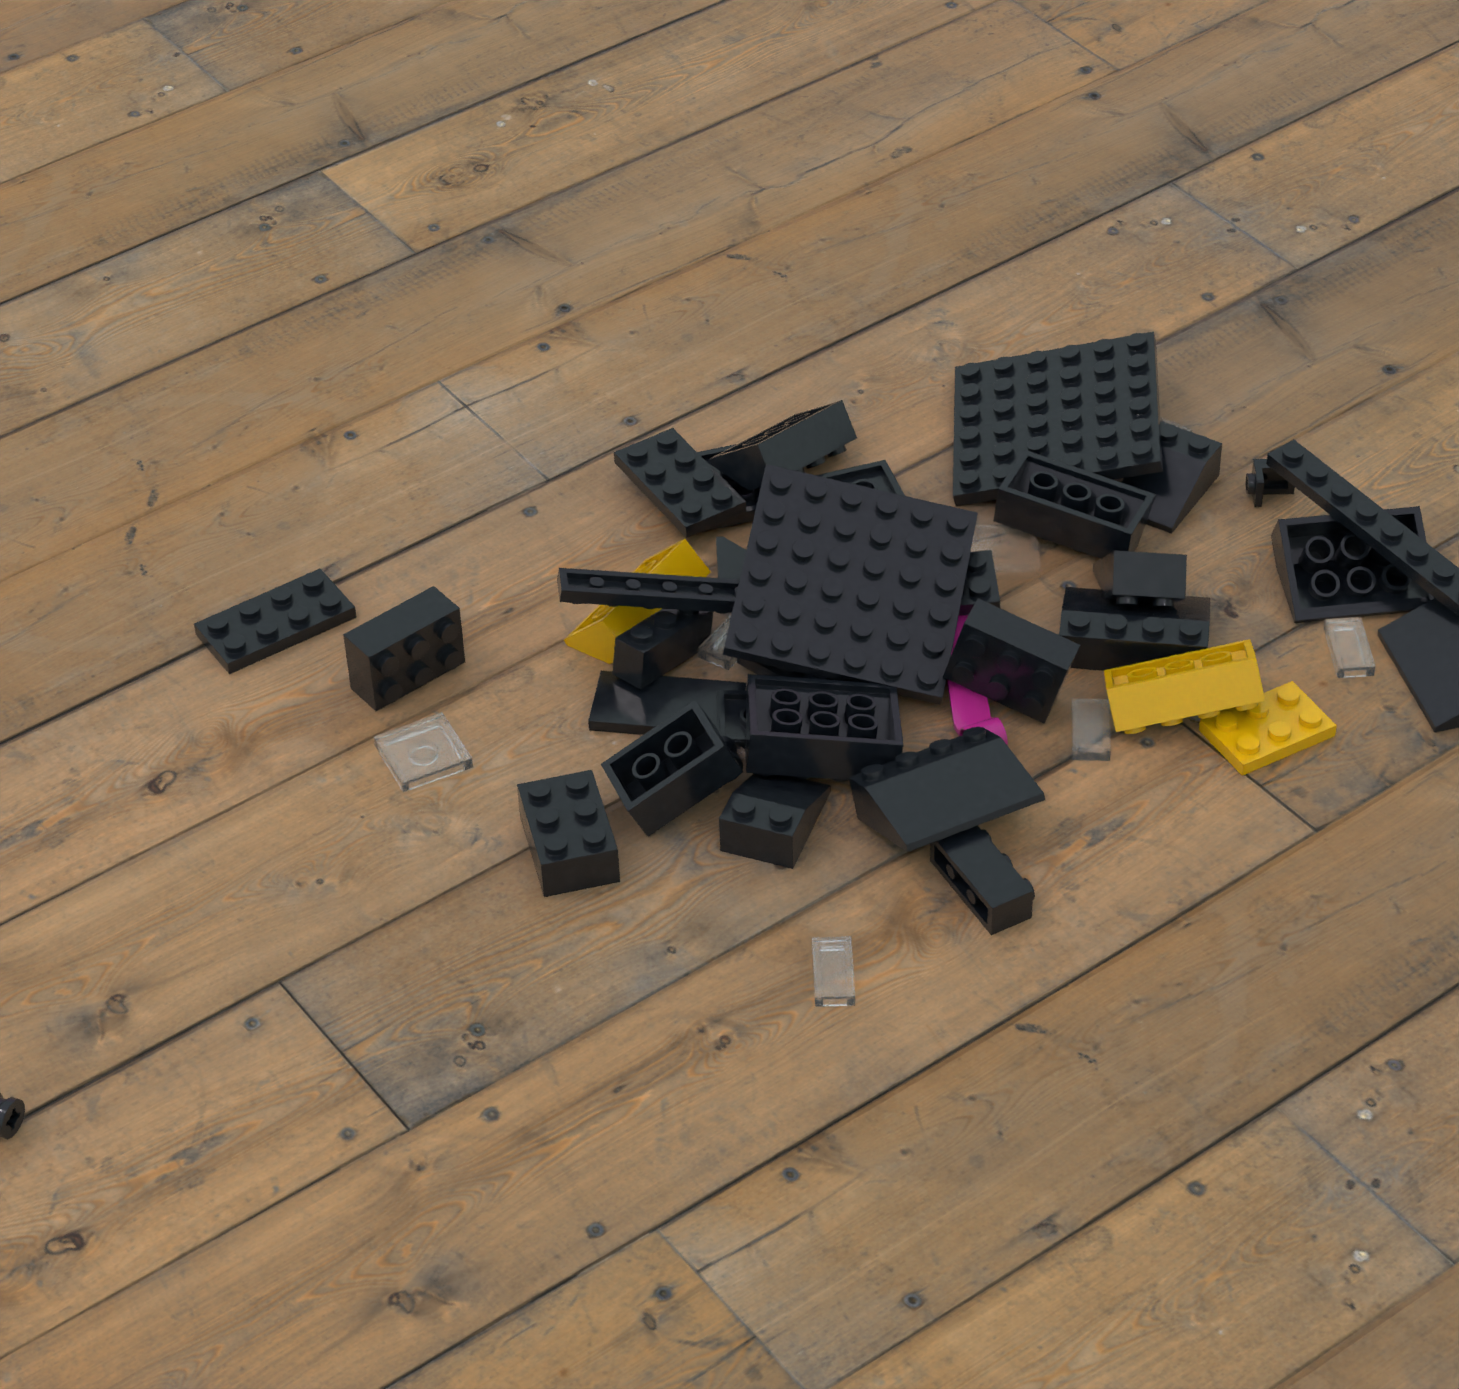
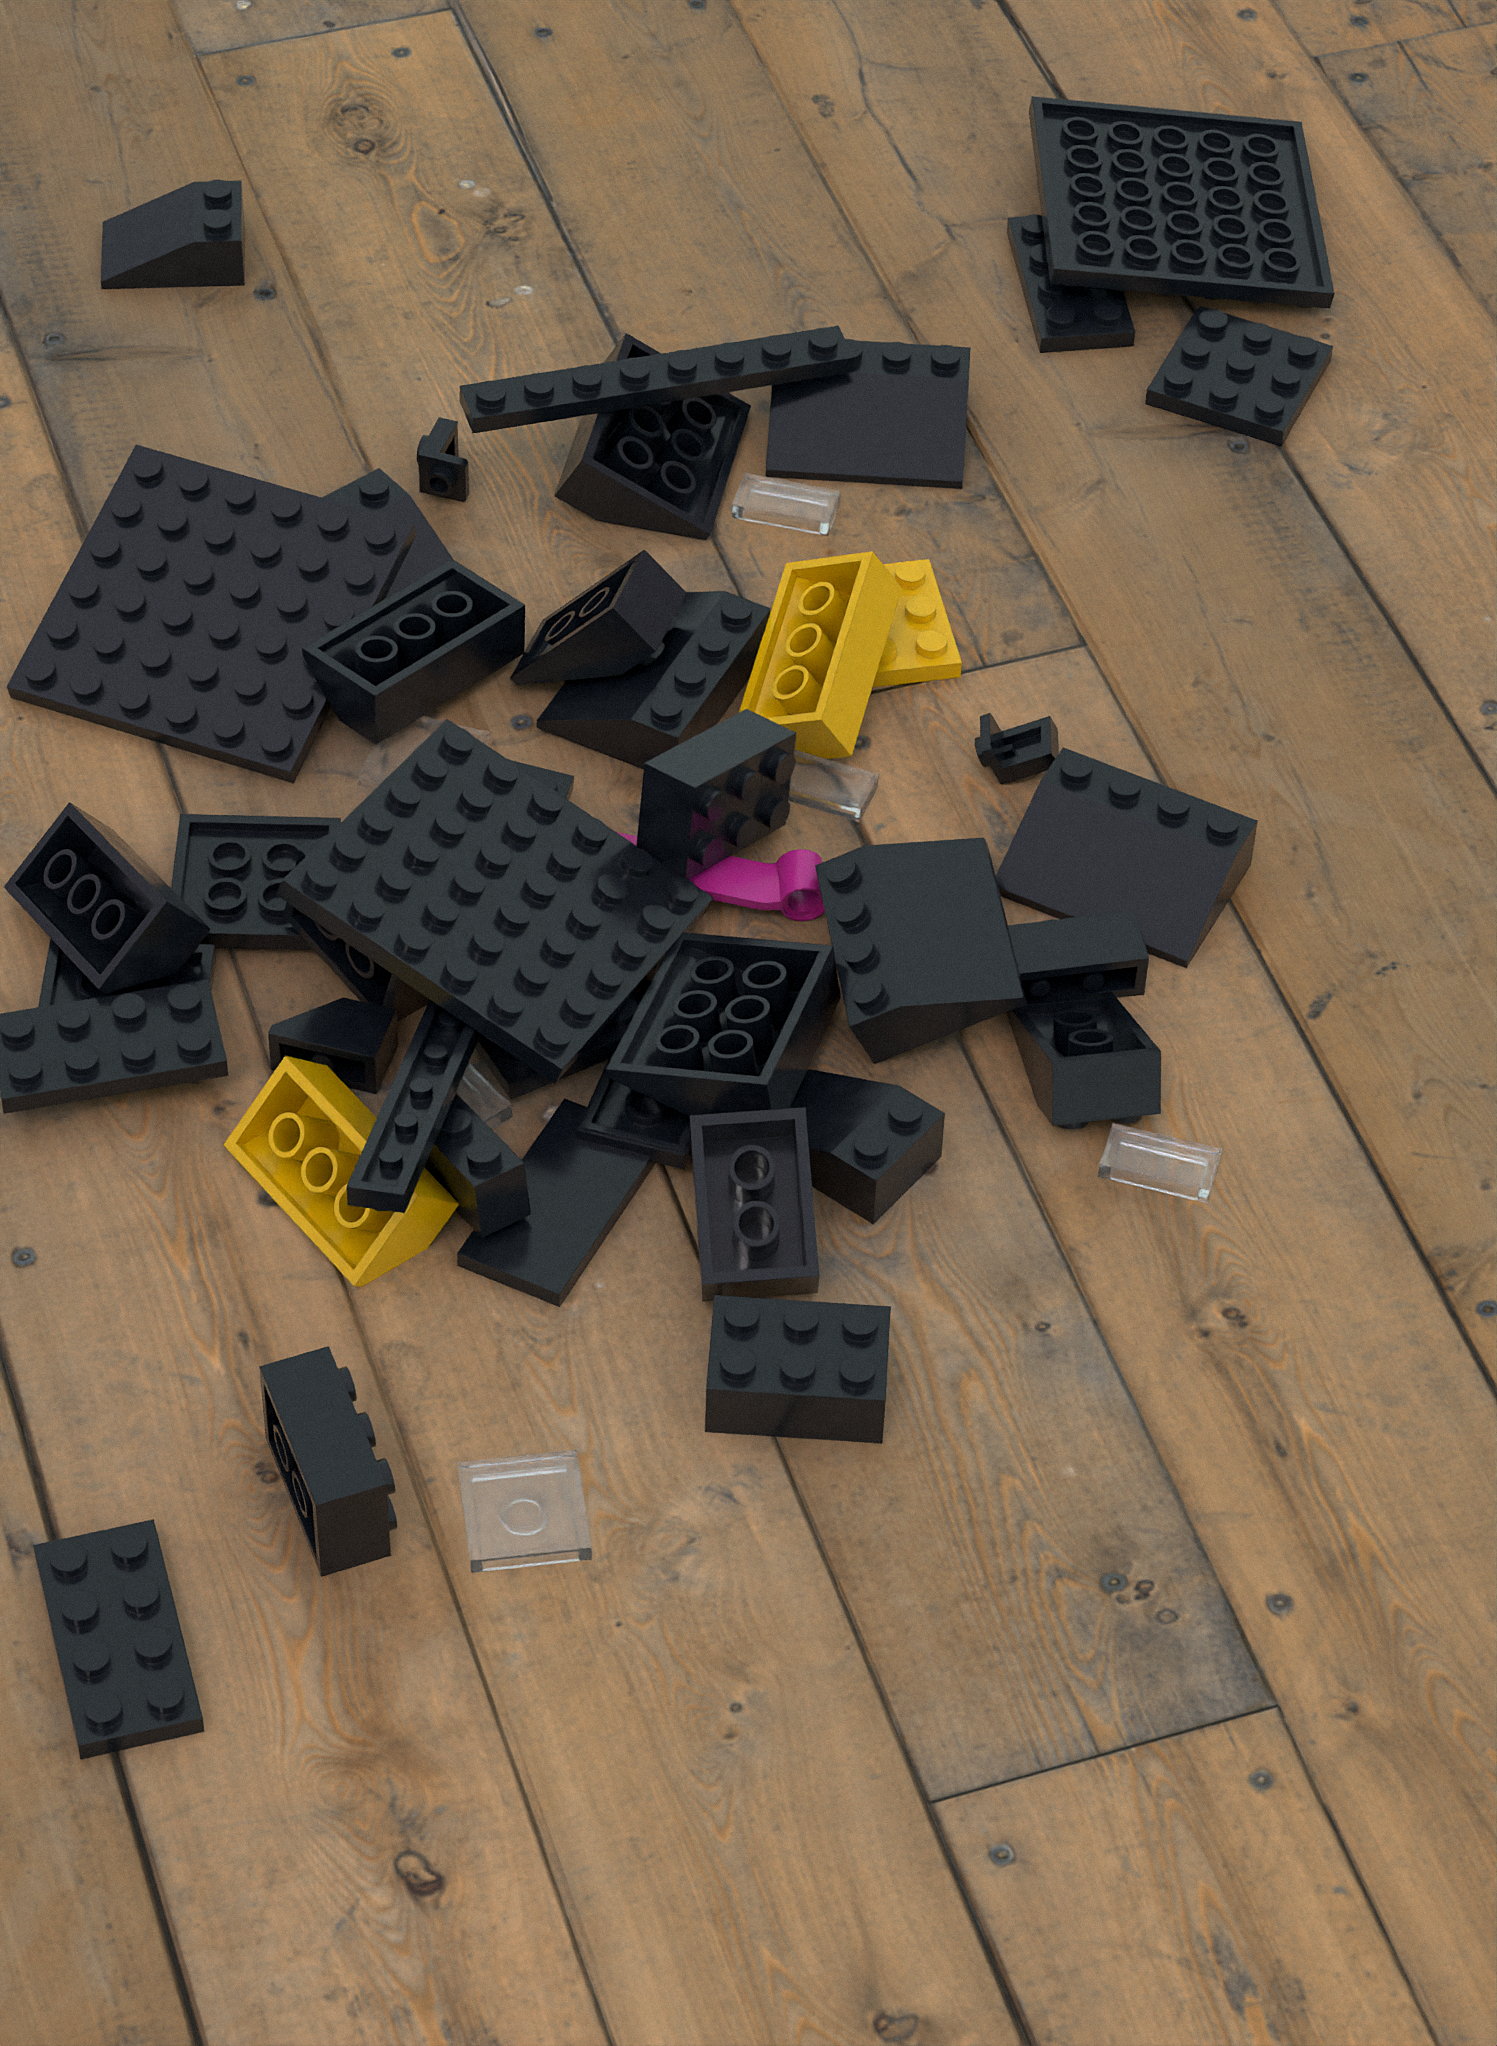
camera: 75 degrees left, 5 degrees up
(899, 906) = (1087, 1060): none -> black slope
(1098, 889) = (1127, 844): none -> black slope
(1170, 808) = (1017, 750): none -> black bracket
(1402, 318) = (178, 240): none -> black slope

